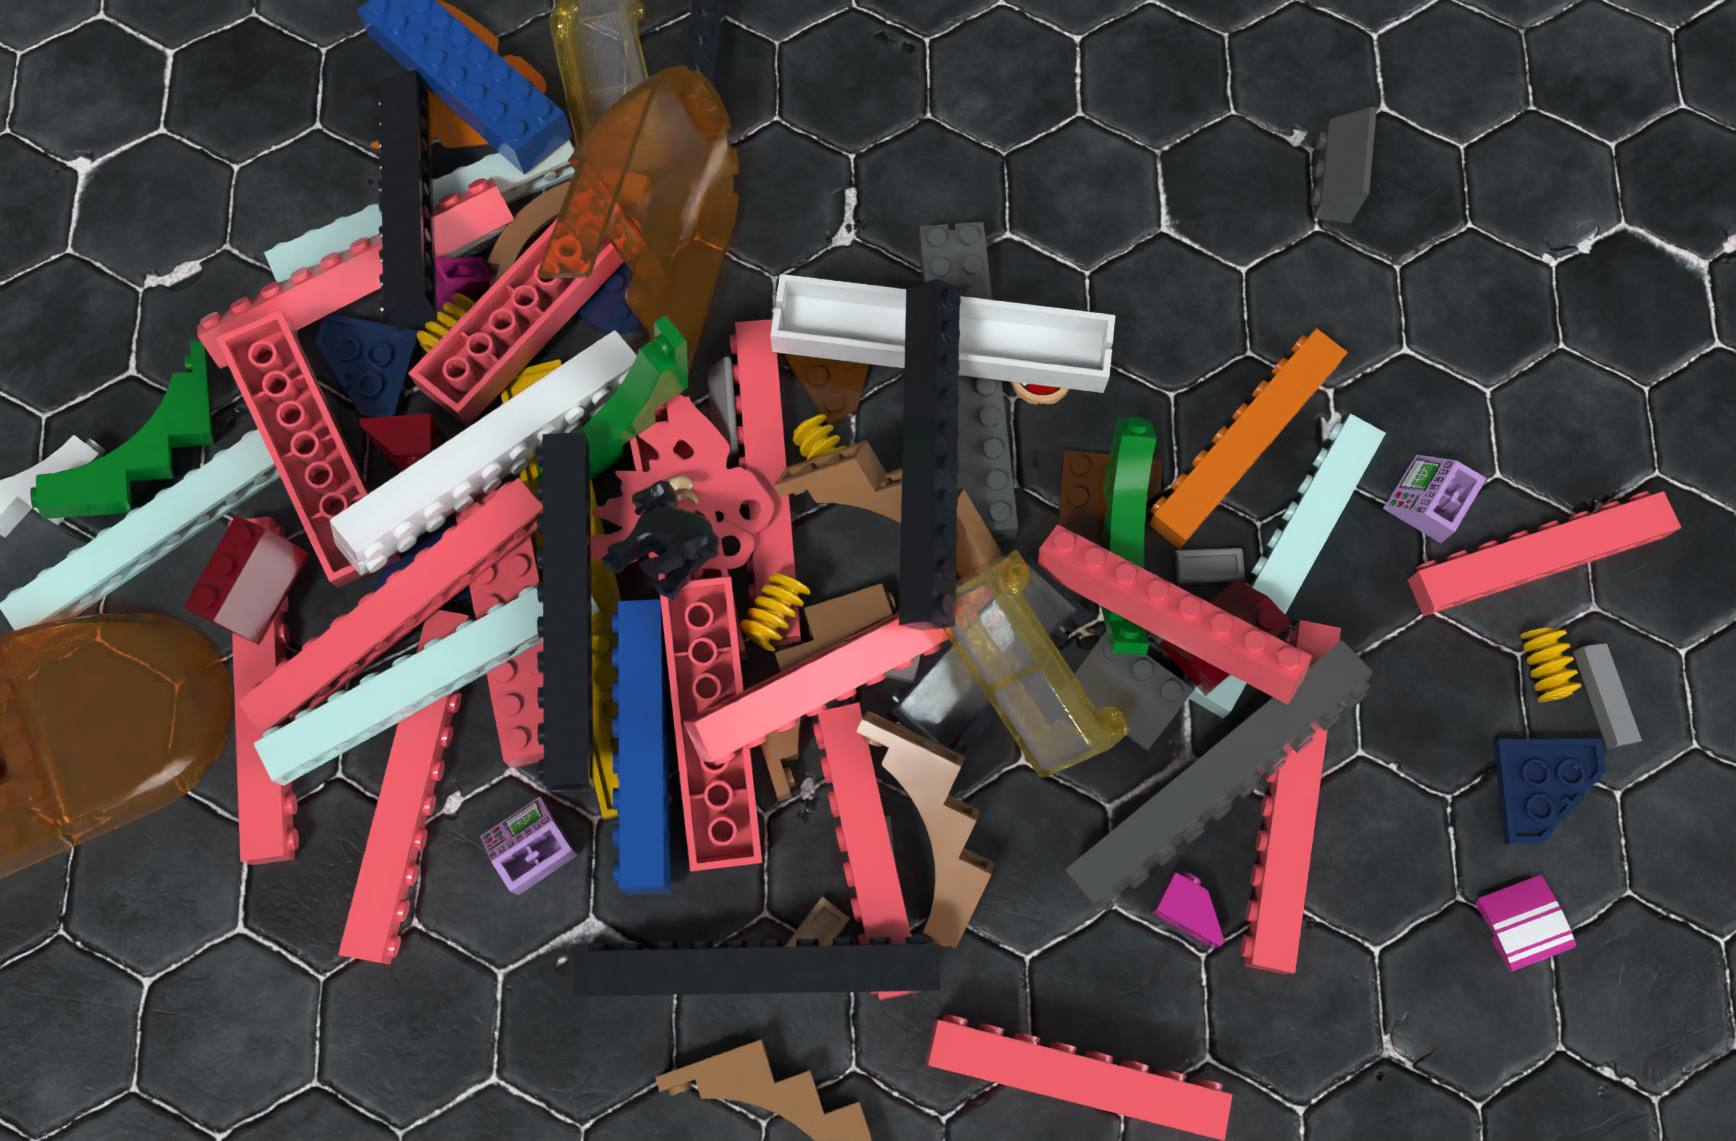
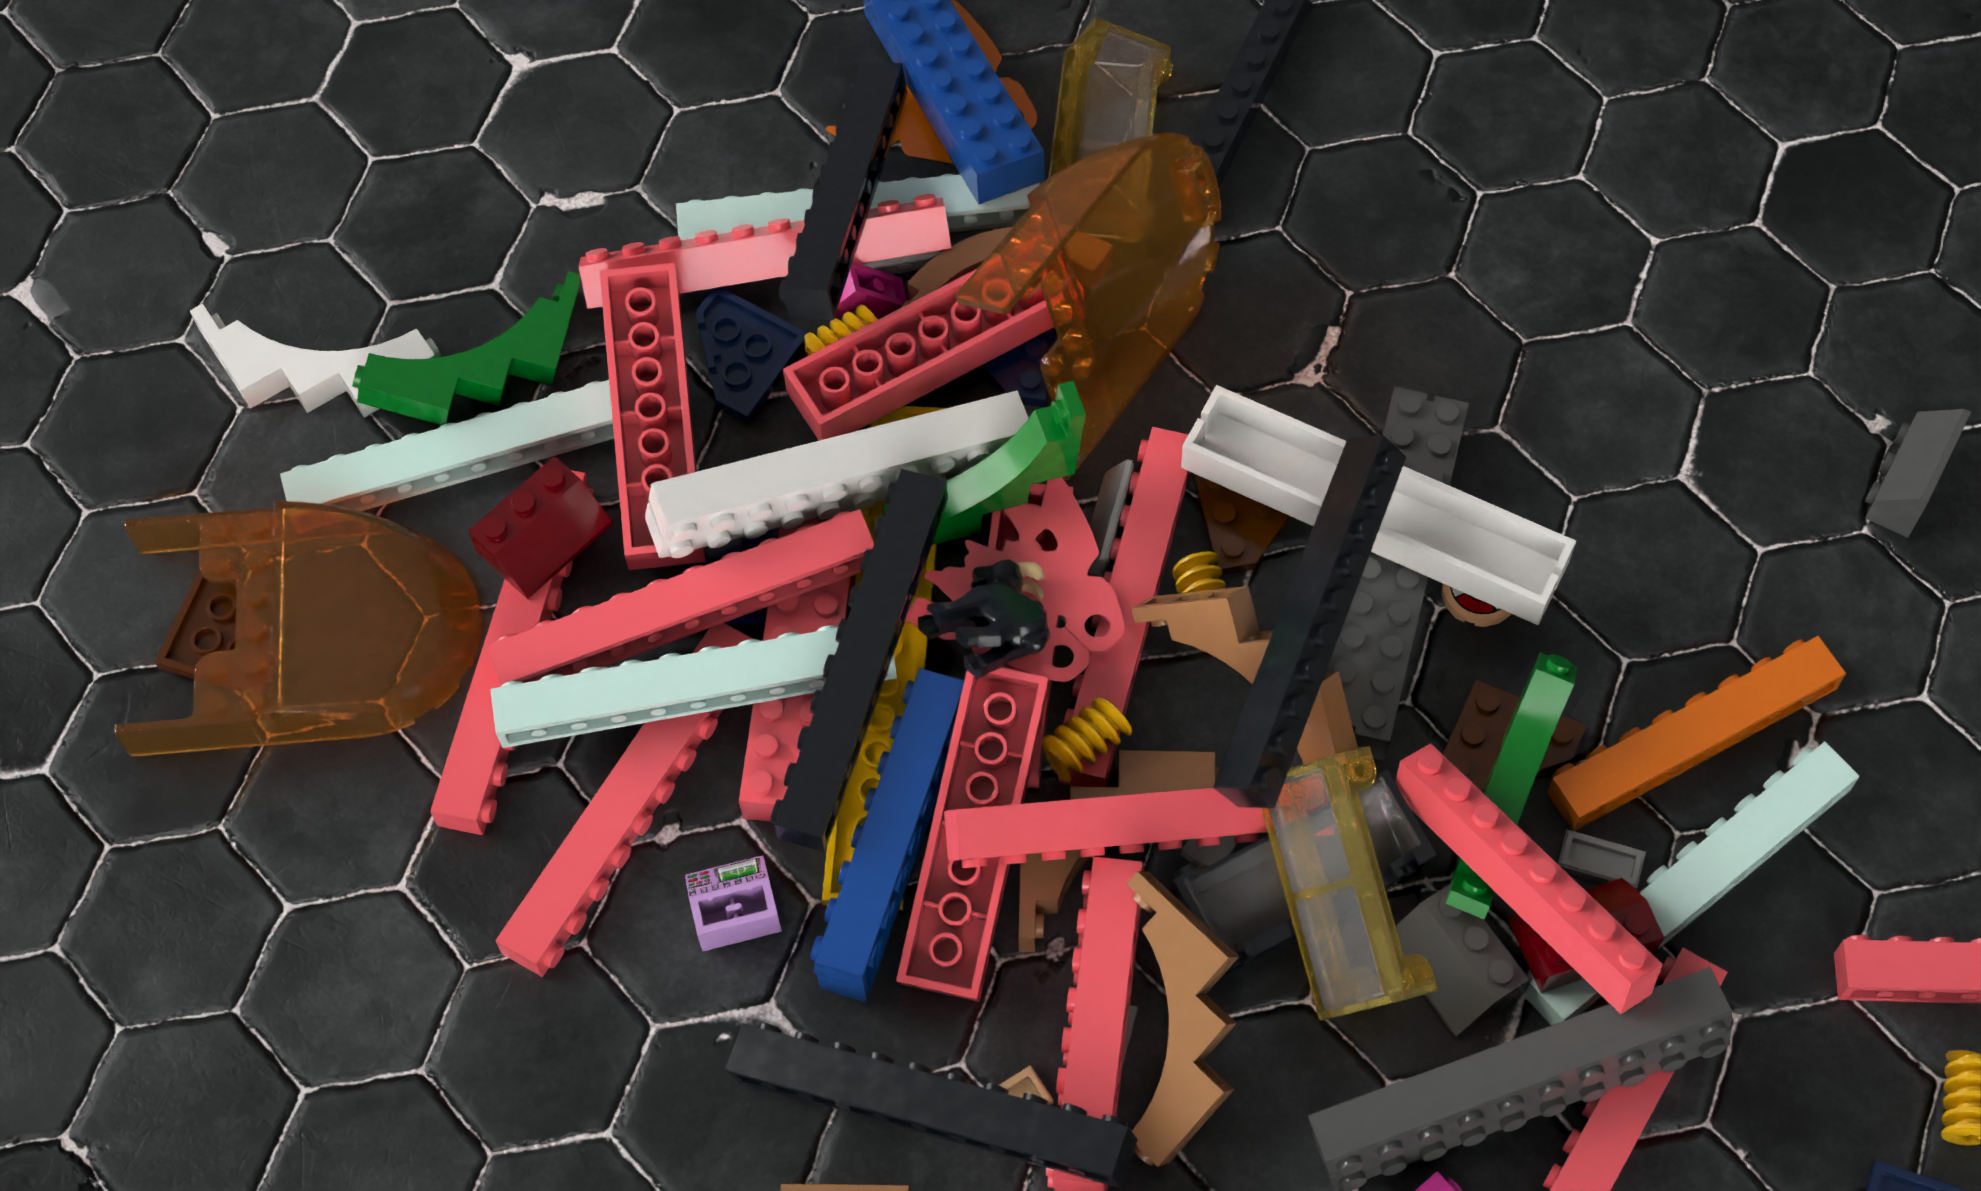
camera: 25 degrees right, 10 degrees down
(404, 437) = (753, 429): dark red slope -> none
(1434, 495) = (1896, 866): lavender slope -> none

